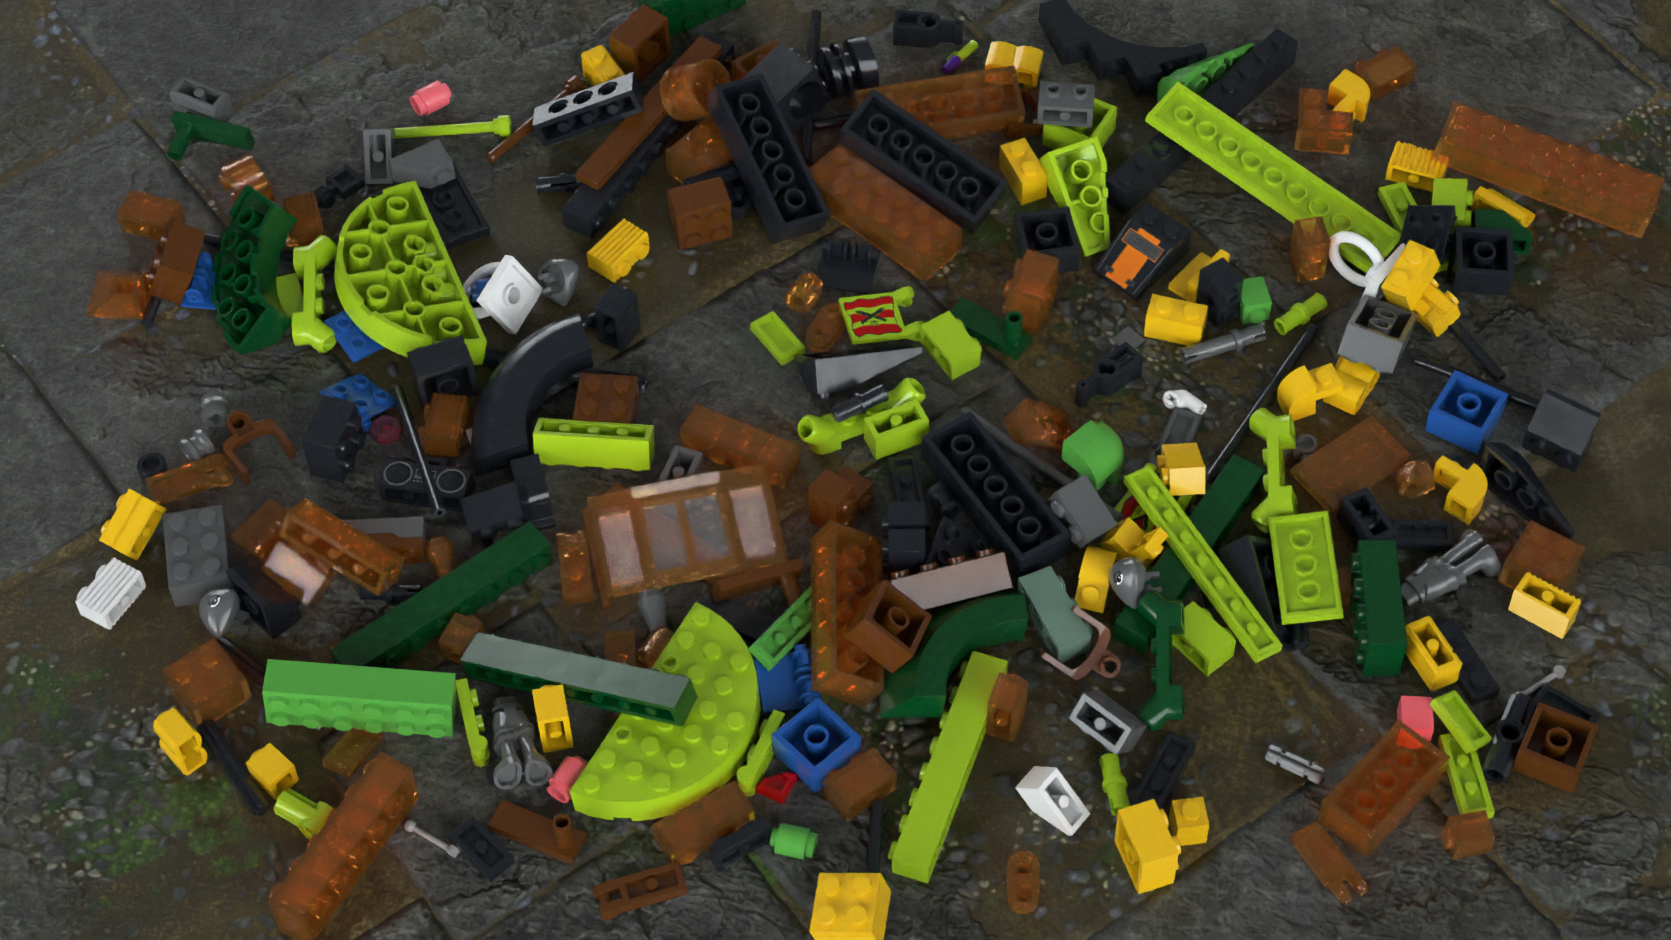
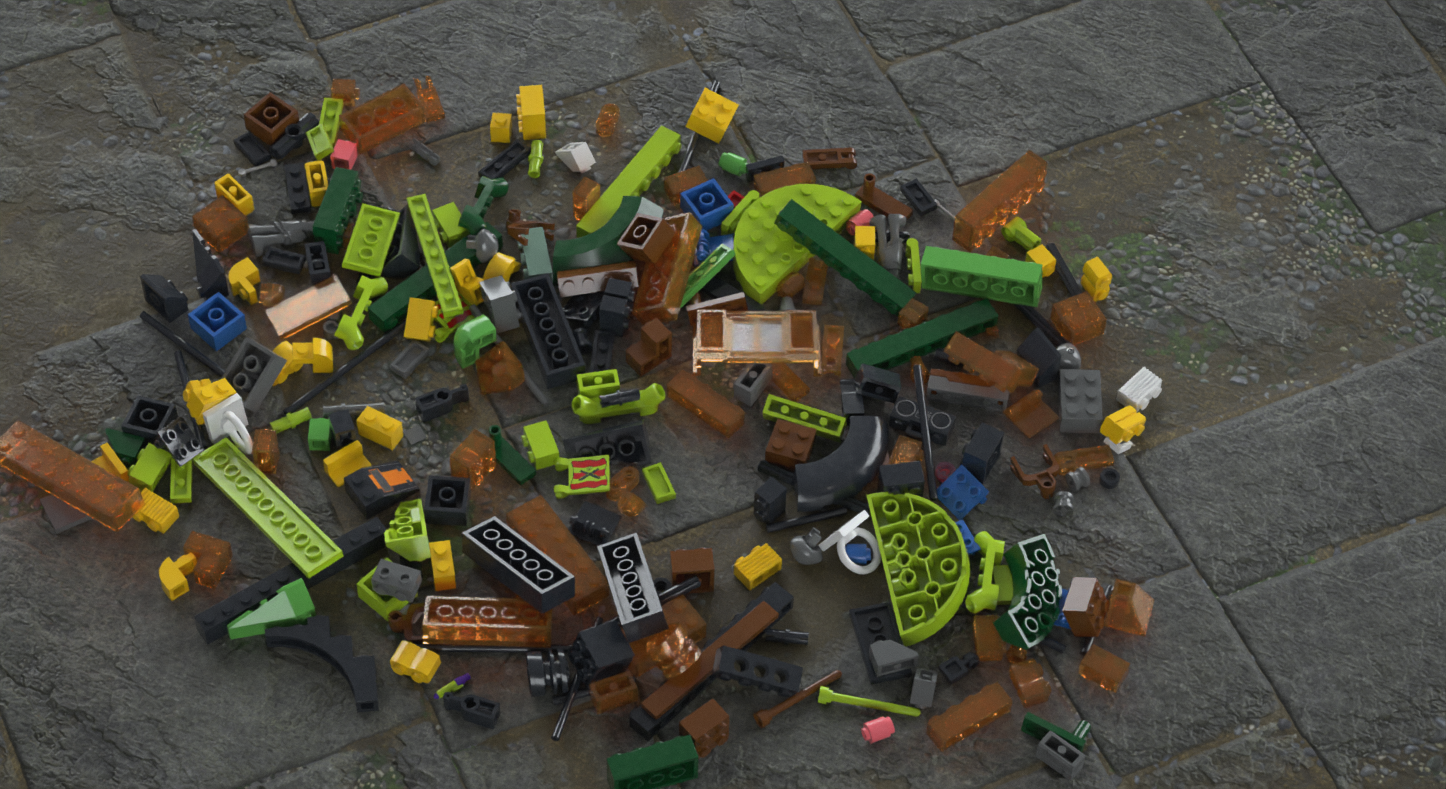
camera: 170 degrees left, 0 degrees up
(319, 132) = (968, 716): none -> clear orange brick
(599, 66) = (739, 721): yellow brick -> none
(1107, 722) = (527, 185): dark grey brick -> none
(1183, 400) = (396, 380): white arm -> none
(1386, 72) = (138, 593): clear orange brick -> none

